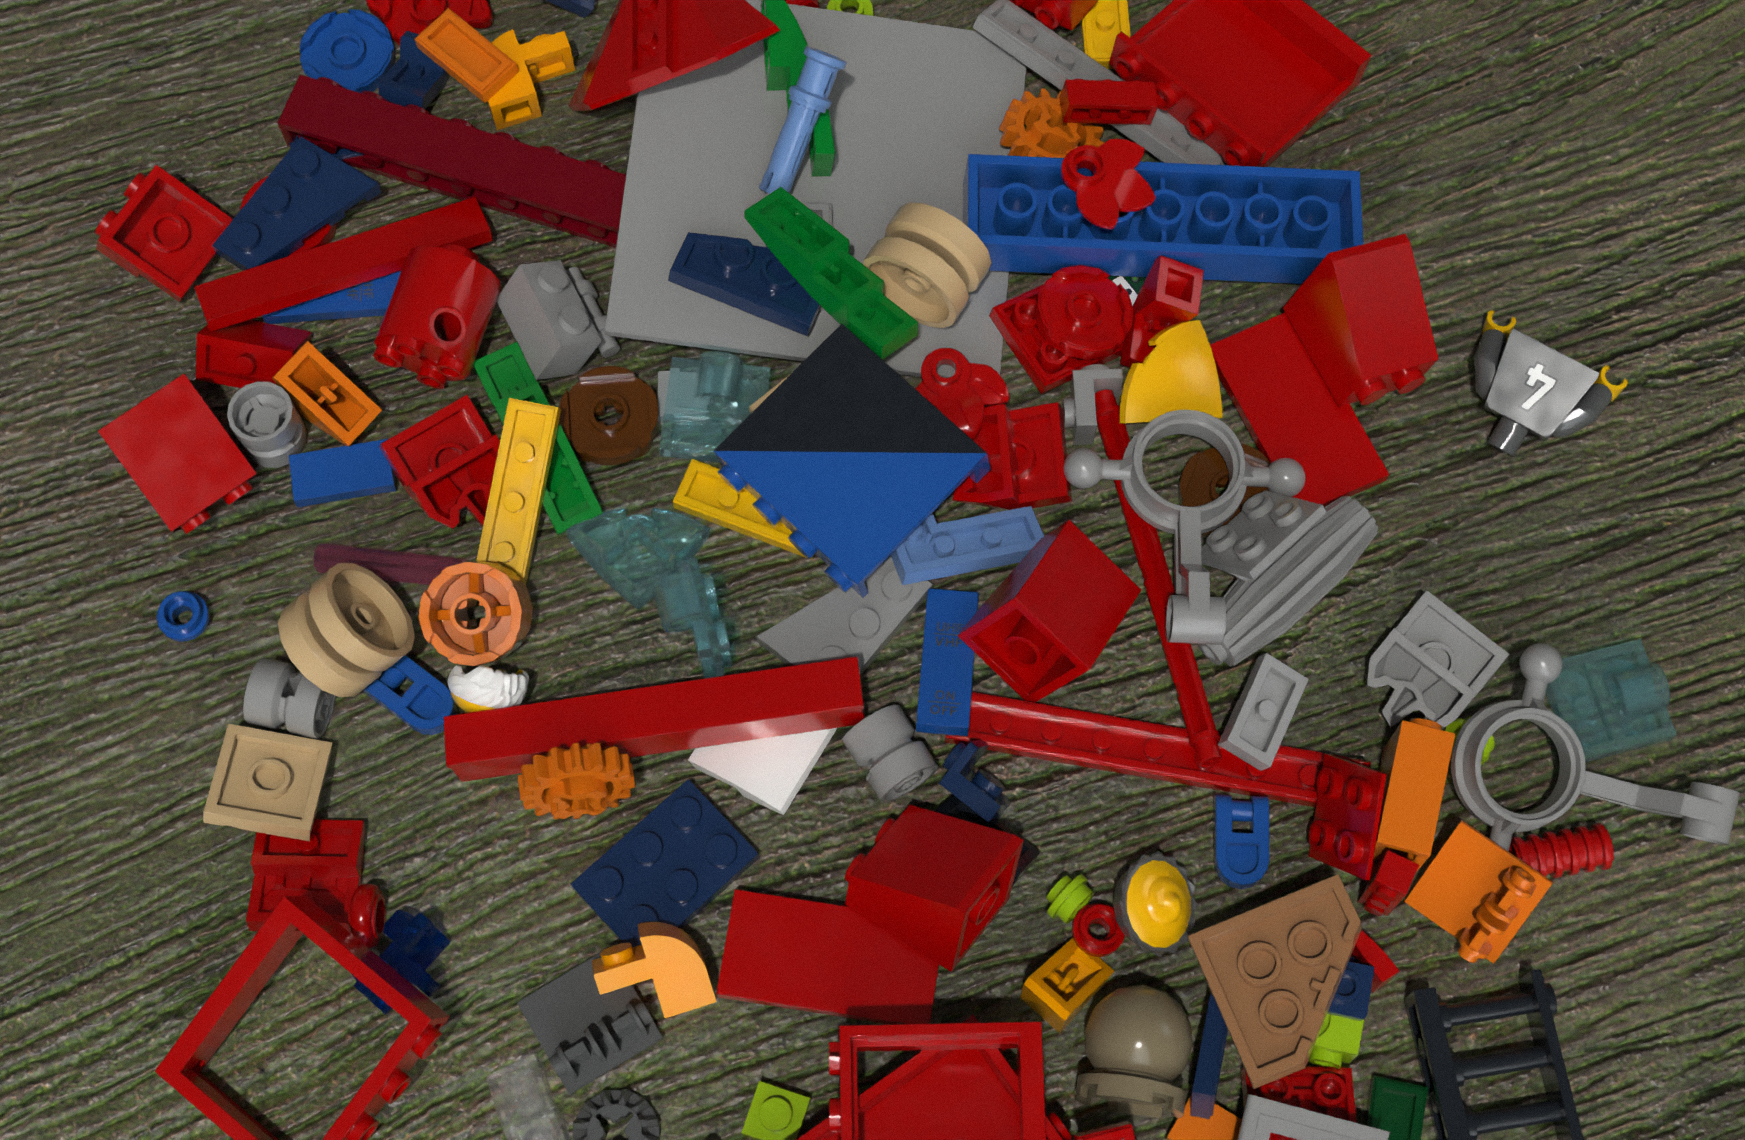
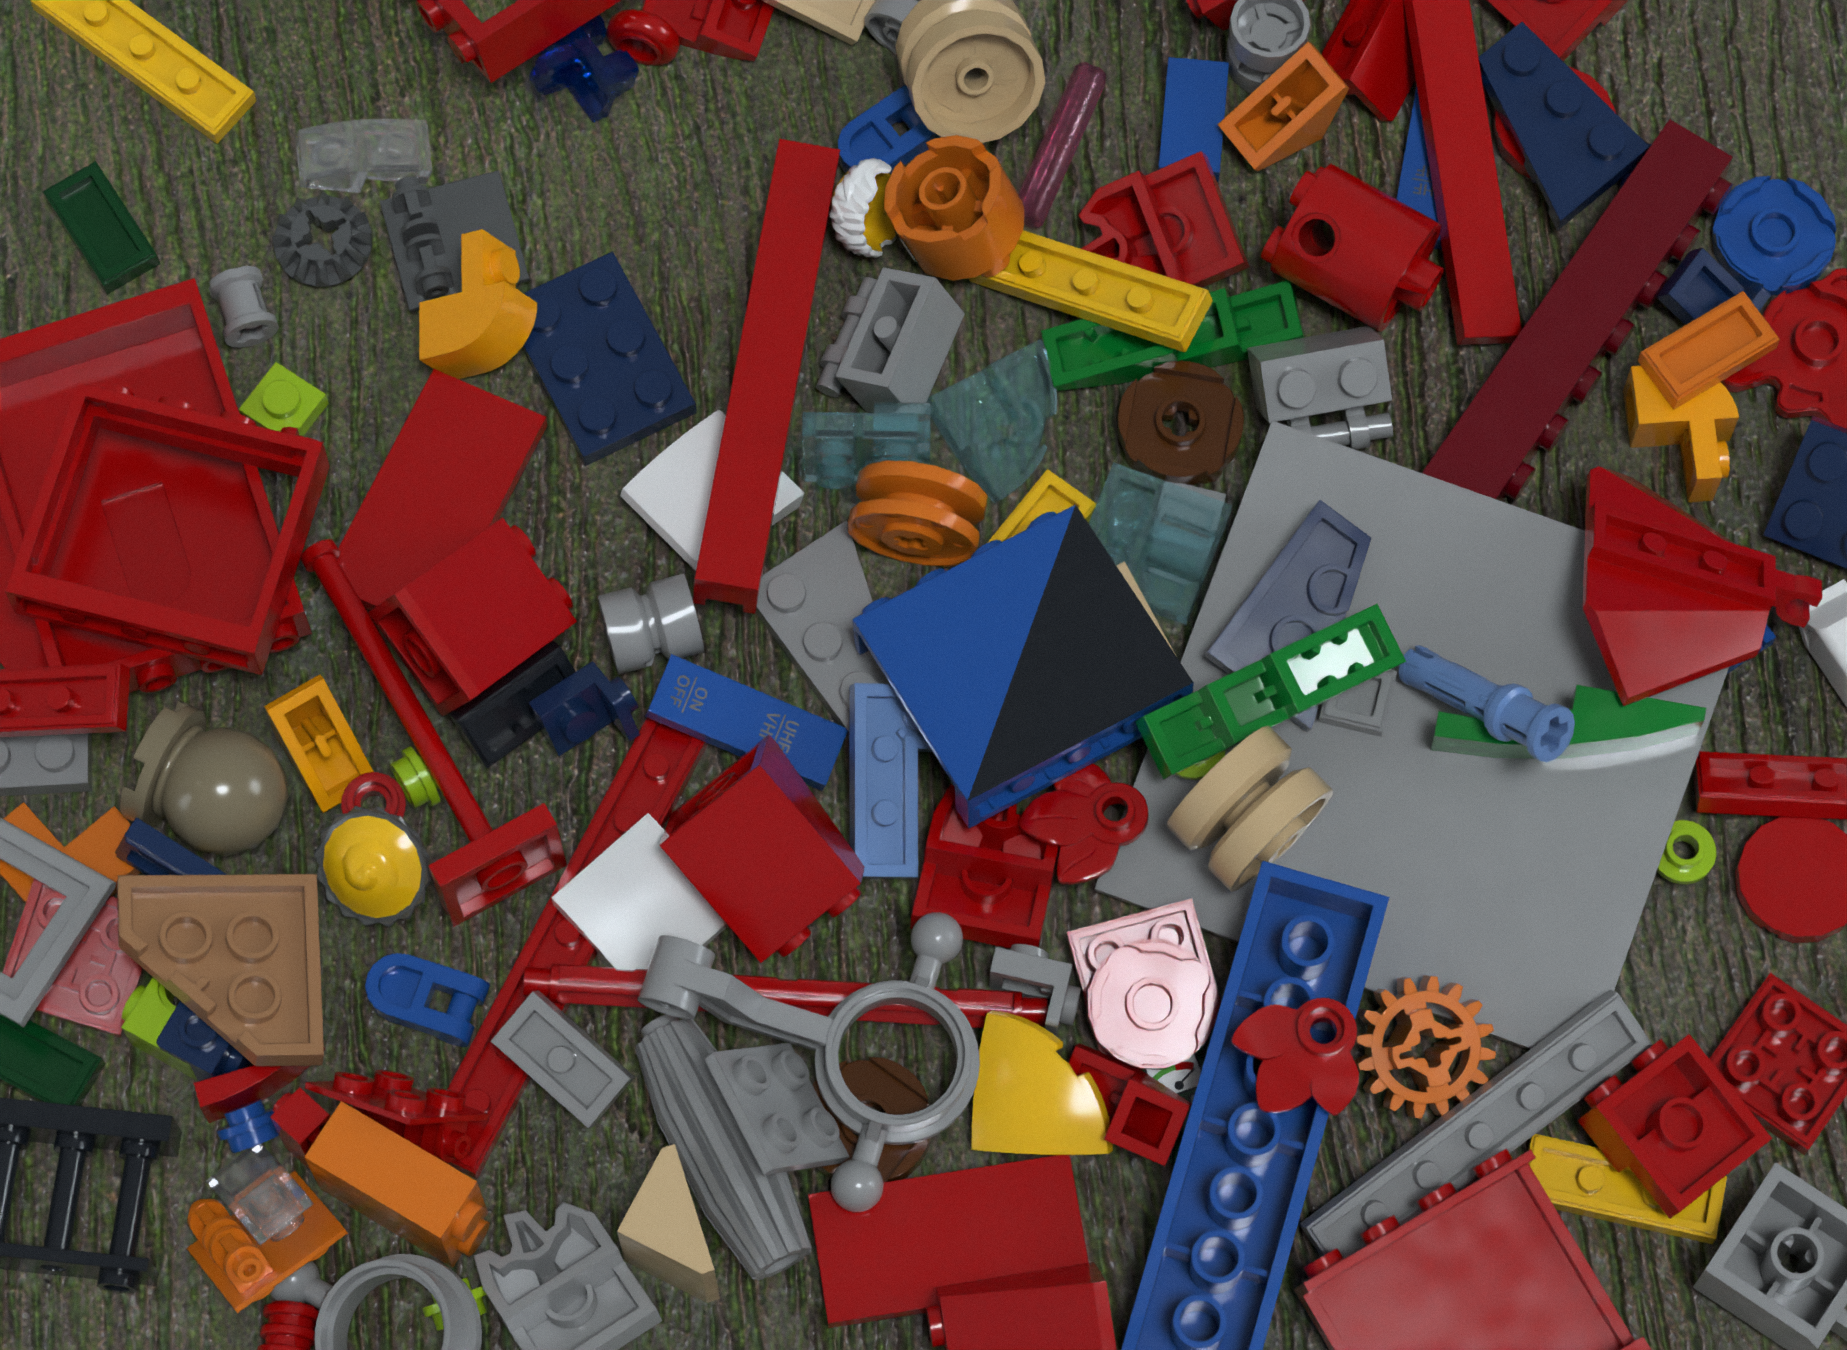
camera: 105 degrees right, 0 degrees up
(576, 781) = (716, 268): orange gear -> none
(600, 629) = (891, 340): none -> light grey brick
(747, 571) = (917, 513): none -> orange wheel
(1108, 101) = (1440, 1115): red piece -> none
(1117, 701) = (635, 897): none -> white slope
(1126, 805) = (495, 860): none -> red tile
(1367, 595) = (664, 1231): none -> tan slope
(1392, 935) = (248, 1126): none -> blue plate
(1447, 905) = (261, 1195): none -> clear slope

